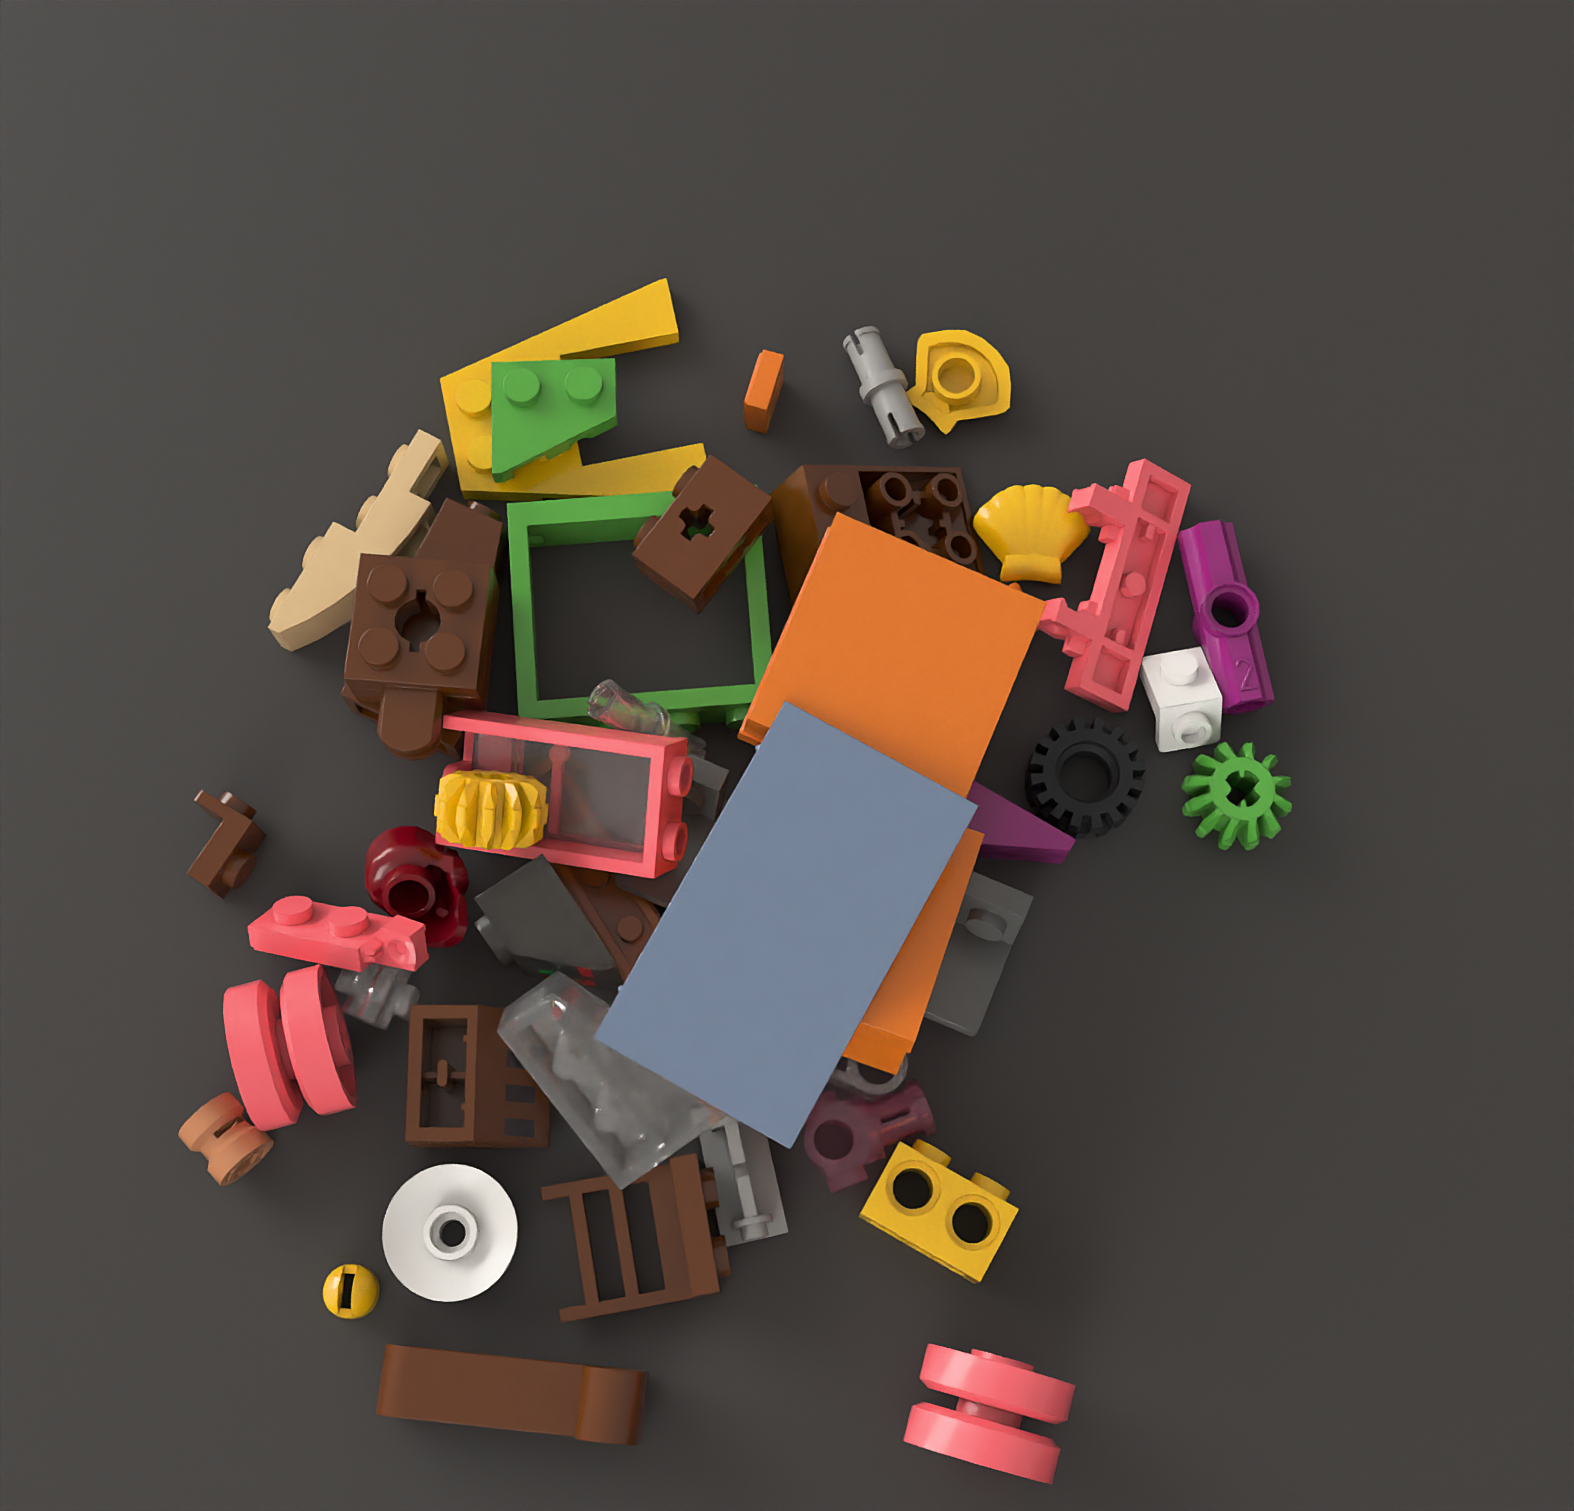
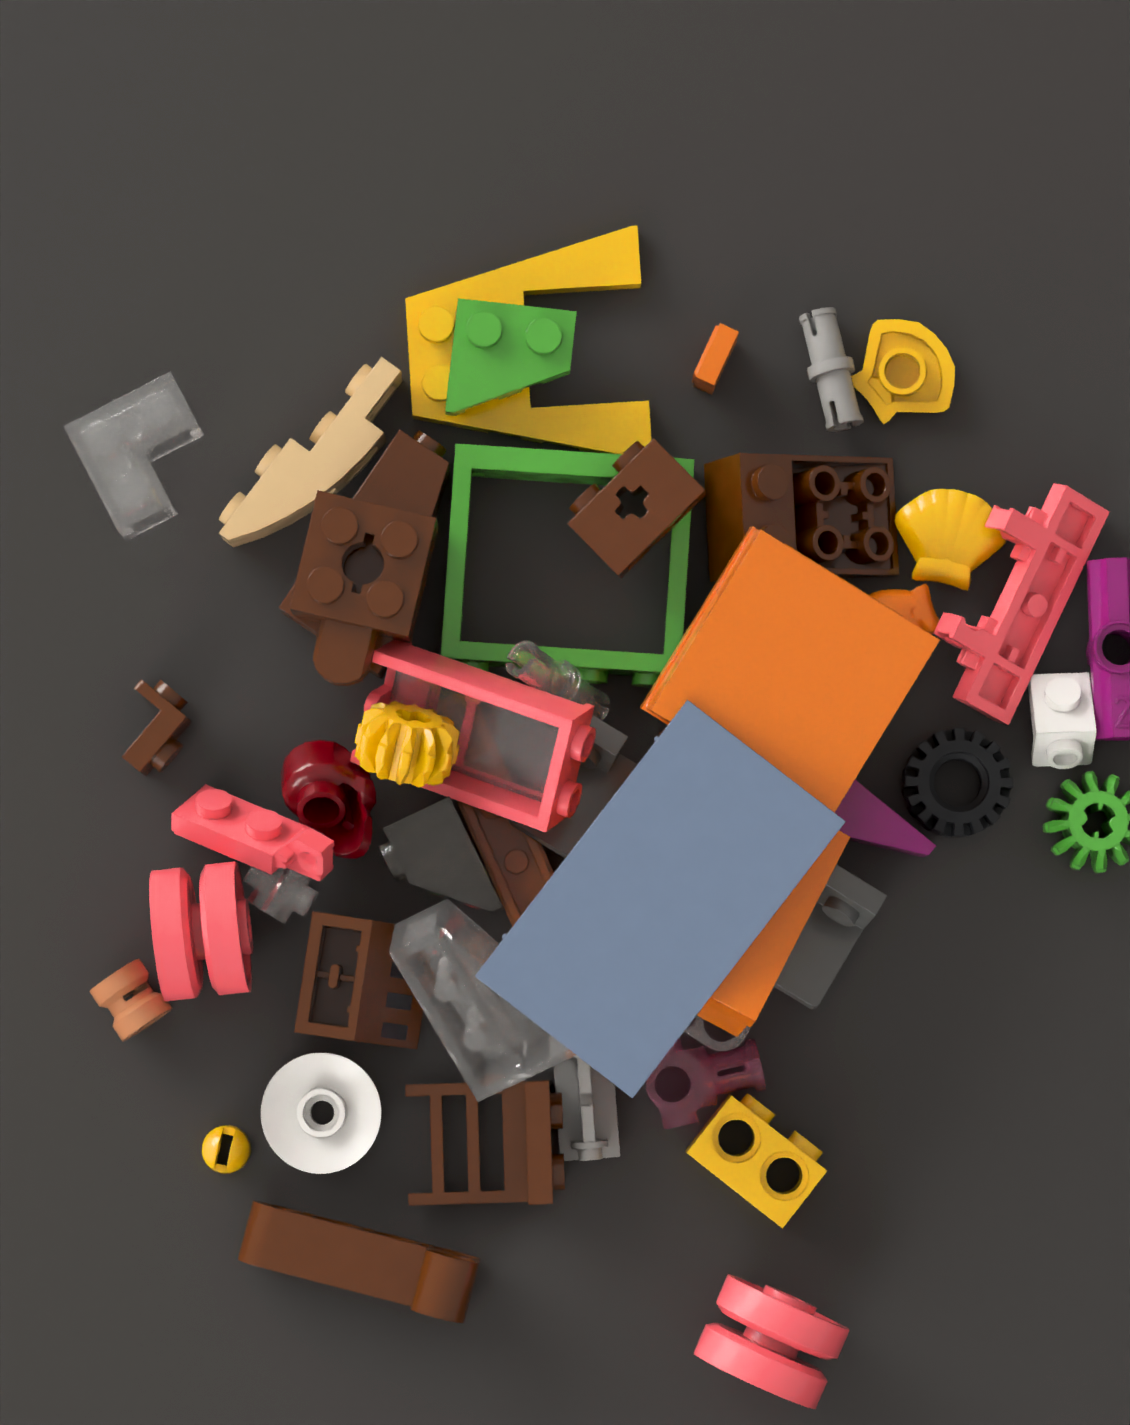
camera: 10 degrees right, 10 degrees up
(162, 555) = (124, 440): none -> clear brick

